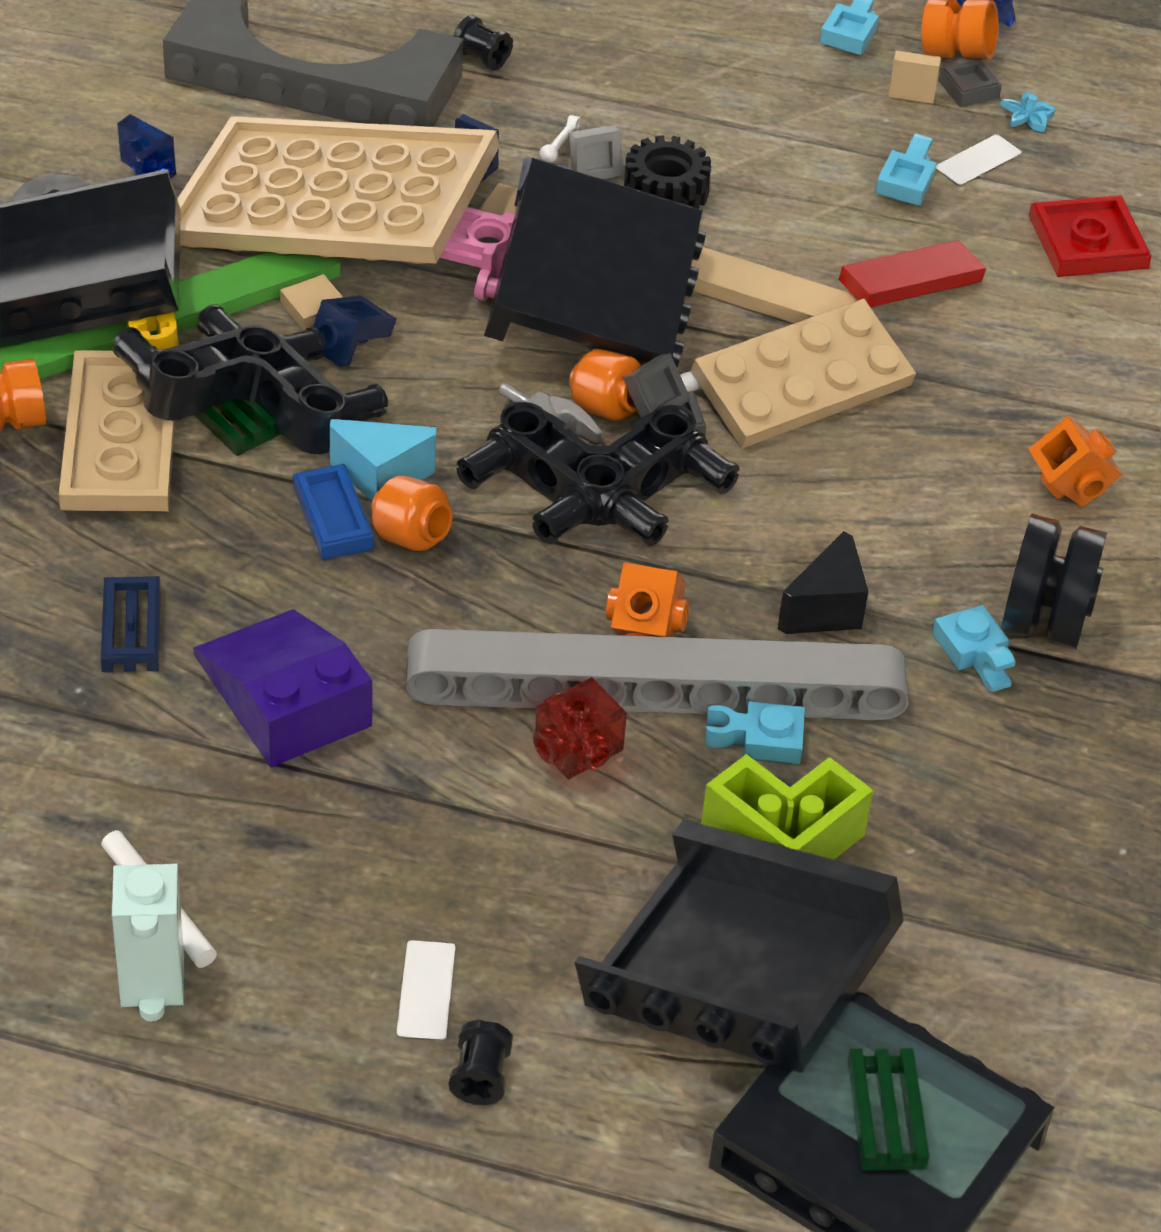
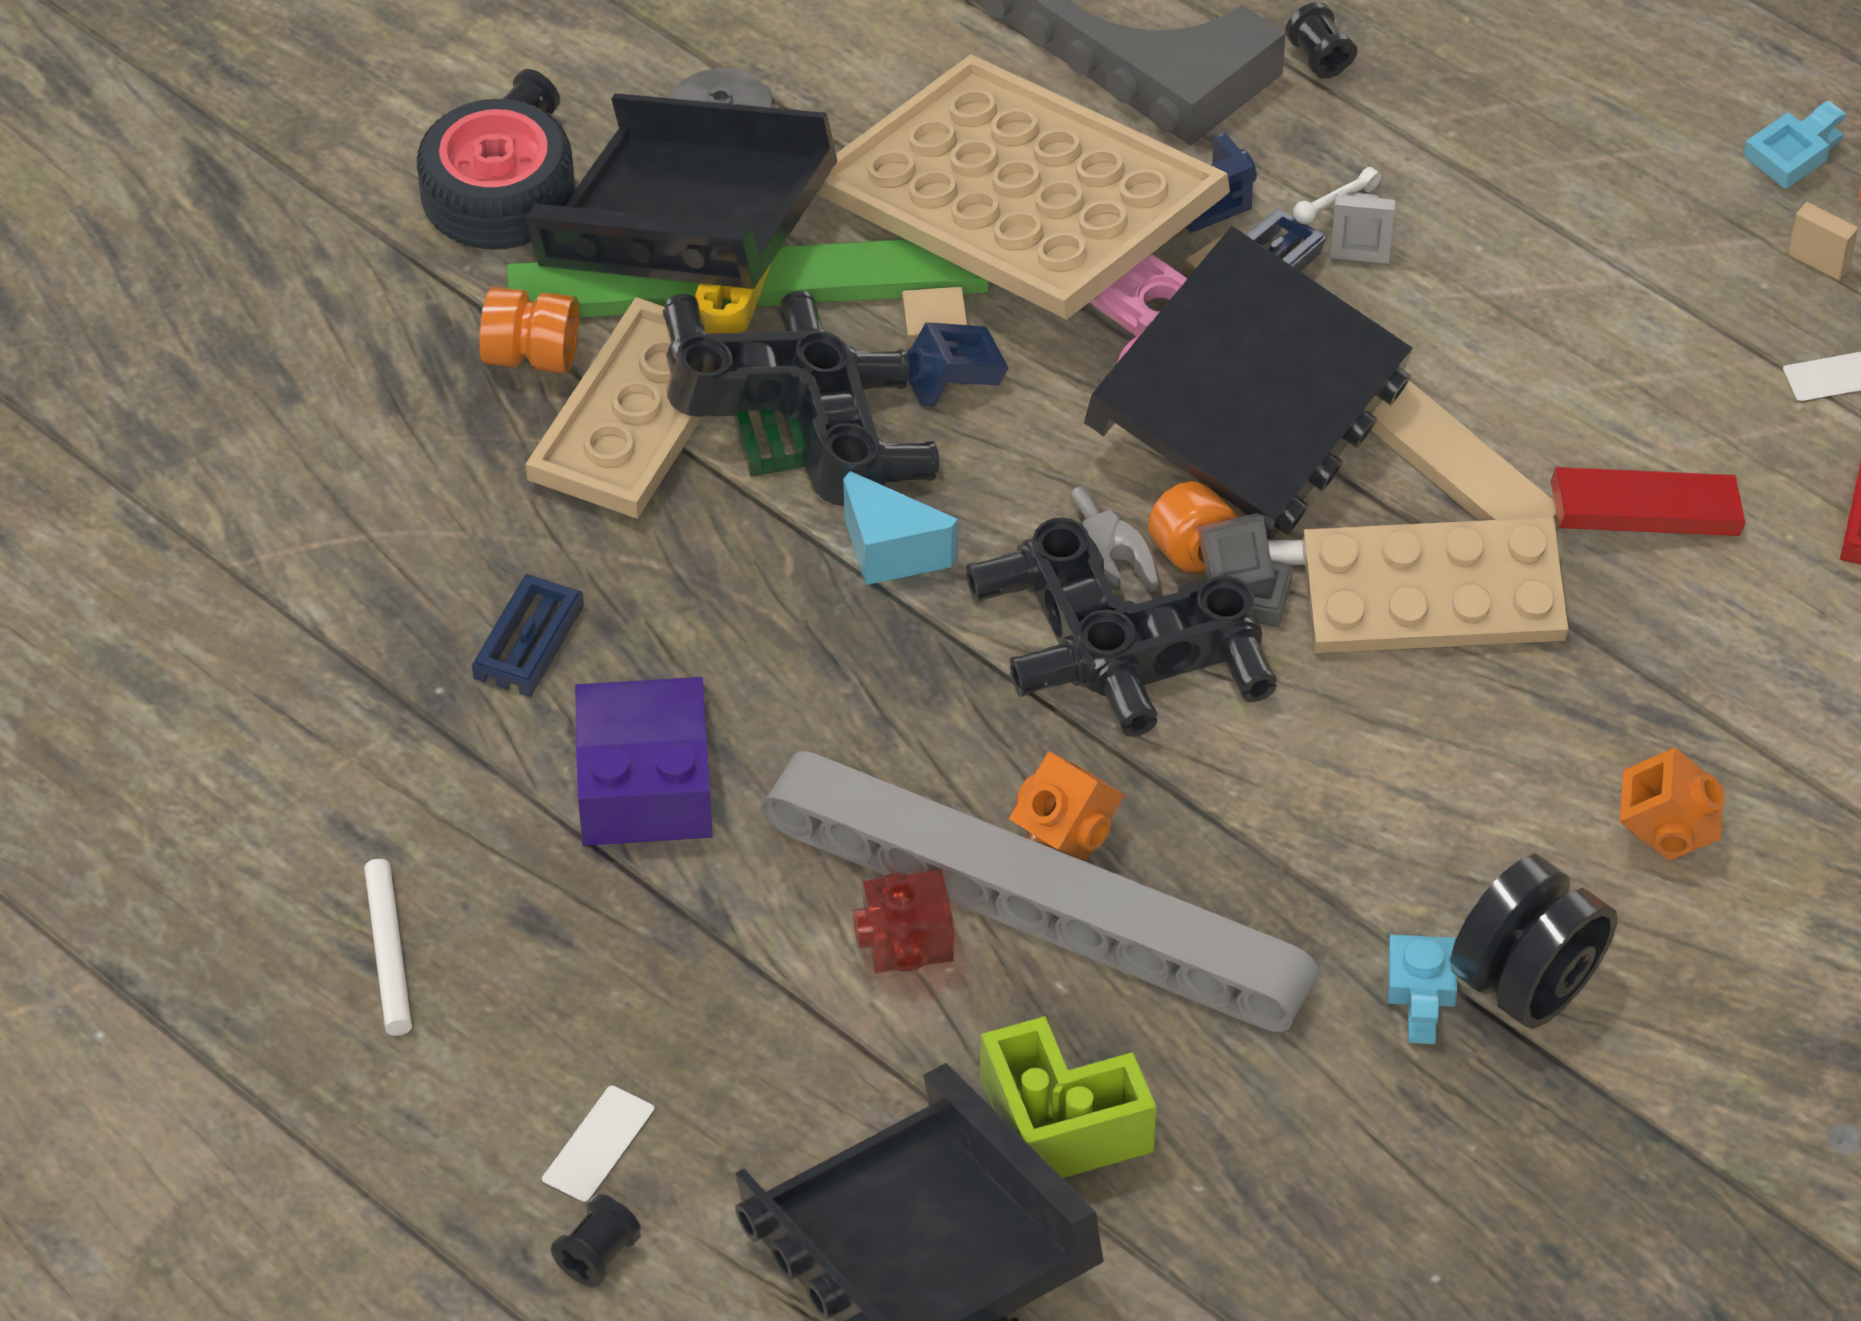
camera: 30 degrees right, 5 degrees up
(145, 147) = (851, 78): clear blue bracket -> none
(148, 937) = (330, 986): light aqua brick -> none
(333, 511) = (810, 577): blue tile -> none
(411, 513) = (882, 609): orange head -> none
(669, 170) = (1426, 307): black tyre -> none
(766, 730) = (1117, 998): medium azure plate -> none
(827, 593) = (1283, 859): black slope -> none
(909, 174) = (1732, 370): medium azure plate -> none

